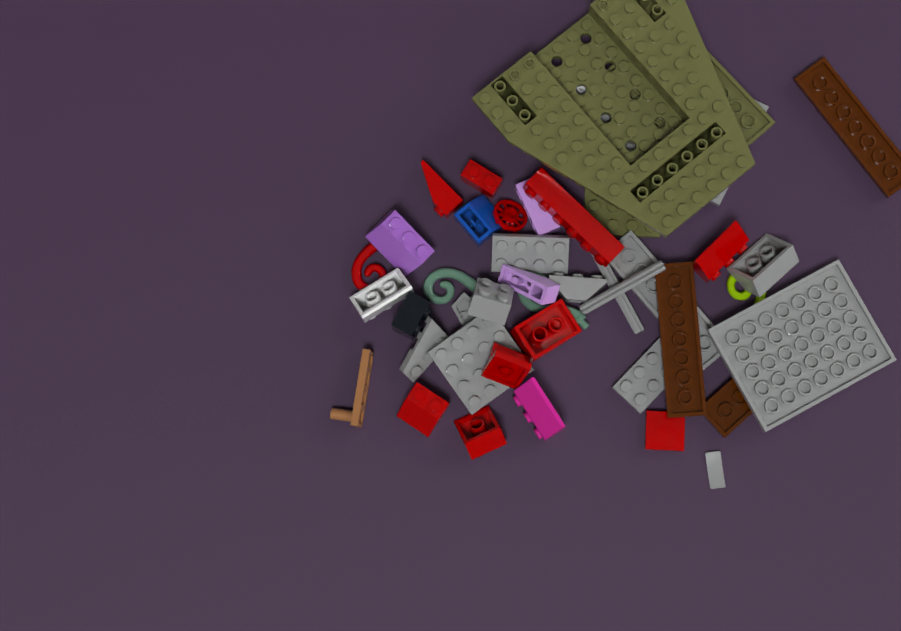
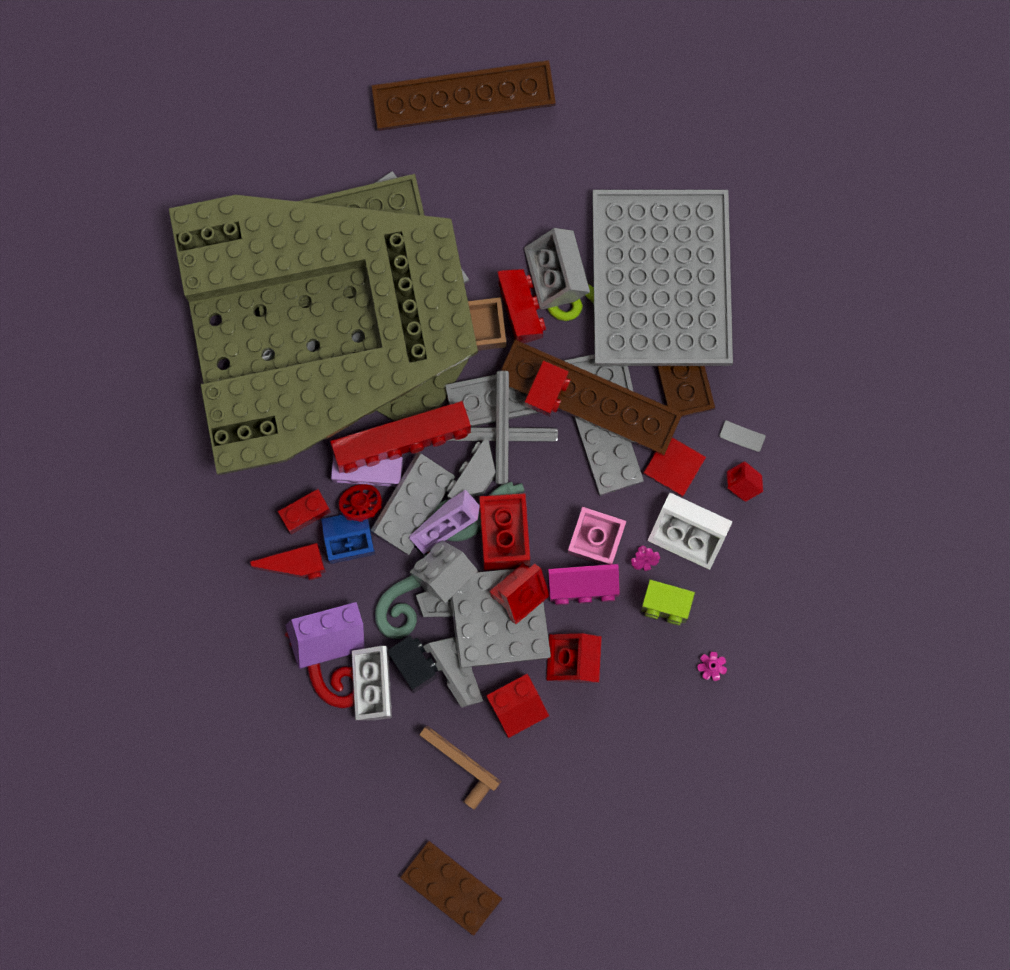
camera: 65 degrees left, 0 degrees up
(264, 432) = (451, 888): none -> reddish brown plate
(529, 543) = (708, 670): none -> dark pink plant
(558, 478) = (667, 602): none -> lime piece
(578, 400) = (596, 537): none -> bright pink brick
(582, 445) = (645, 558): none -> dark pink plant
(621, 467) = (689, 531): none -> white slope
(668, 303) = (547, 389): none -> red piece
(681, 489) = (745, 481): none -> red panel
(693, 235) = (488, 323): none -> medium nougat piece

